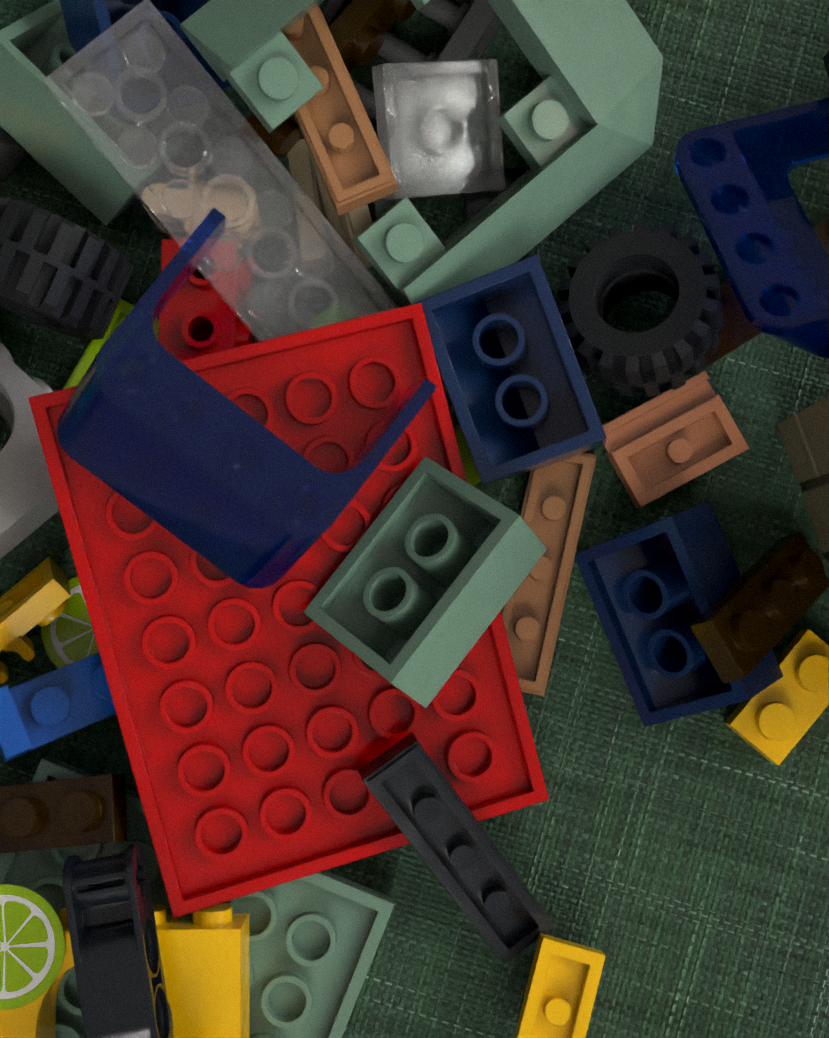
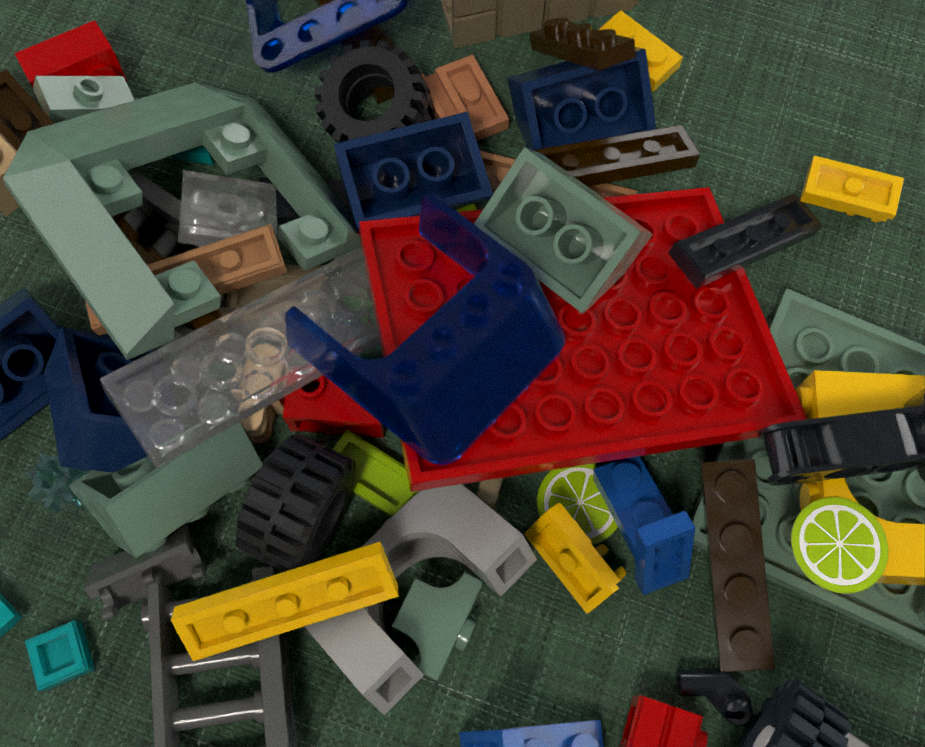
camera: 85 degrees left, 15 degrees down
(584, 660) = (626, 155): none -> dark brown plate

